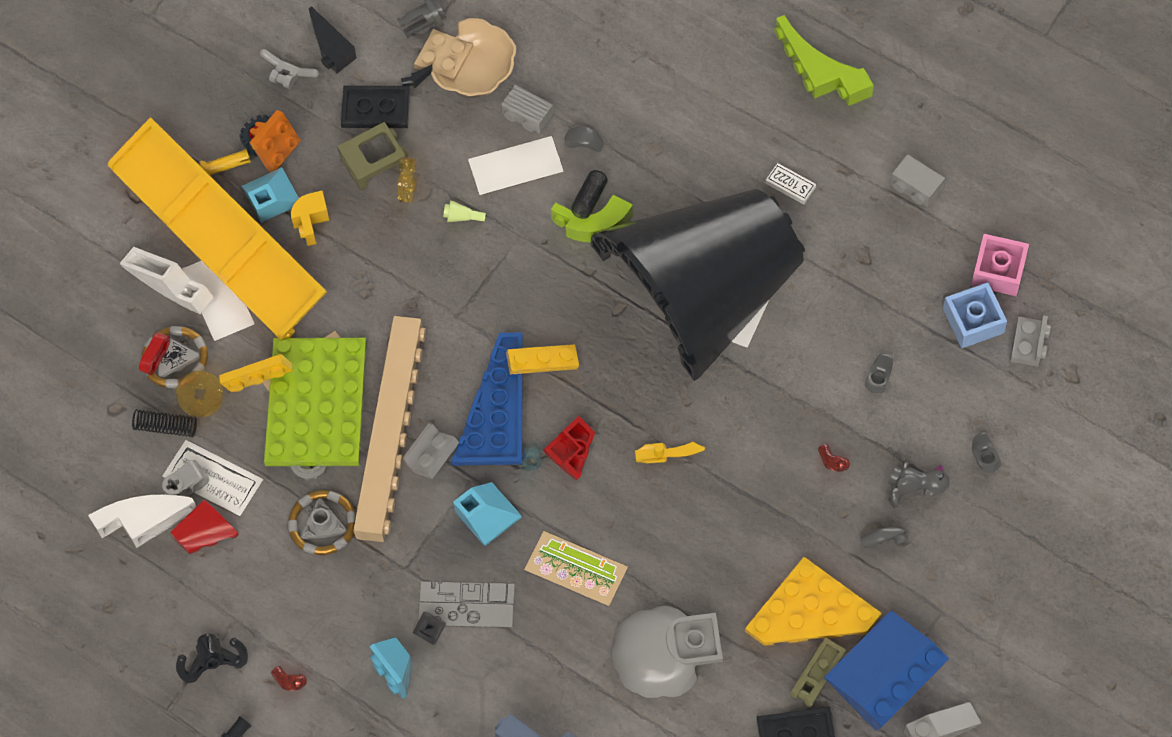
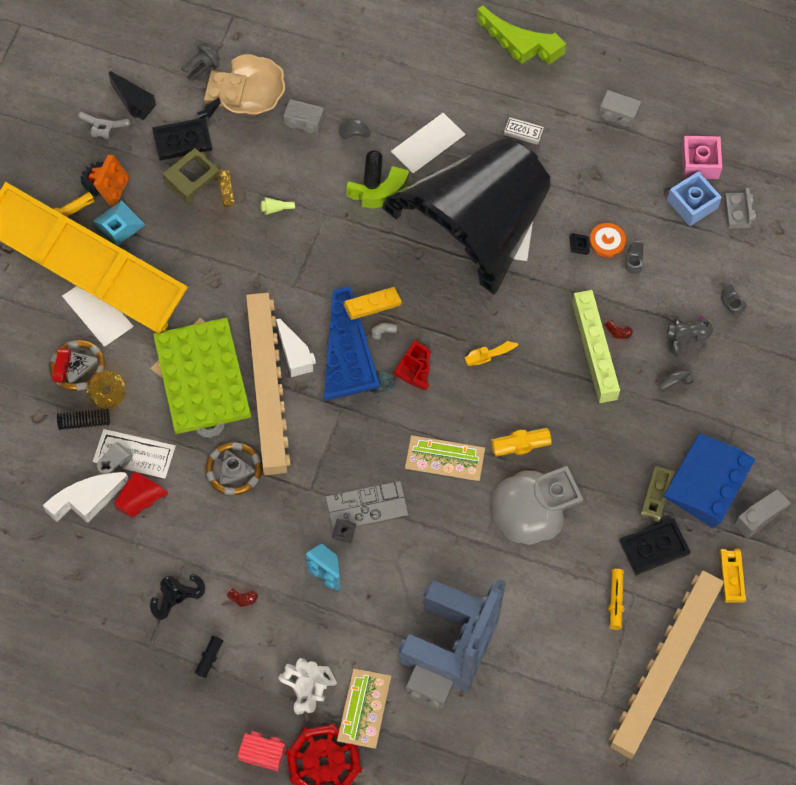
camera: 20 degrees left, 0 degrees up
(167, 279) = (53, 305): white slope -> none
(256, 373) = (148, 363): yellow plate -> none
(308, 211) = (152, 230): yellow brick -> none
(430, 451) = (305, 394): light grey bracket -> none
(433, 398) = (296, 351): none -> white slope
(486, 512) = (362, 431): medium azure slope -> none
(515, 165) = (306, 161): white sticker -> none
(546, 392) = (381, 328): none -> light grey arm
(670, 173) = (428, 143): none -> white sticker
(671, 570) = (521, 442): none -> yellow piece
(797, 473) = (595, 346): none -> yellowish green brick
(811, 607) = (635, 446): yellow plate -> none
(816, 341) = (579, 244): none -> black tile
(853, 343) = (607, 240): none -> orange tile

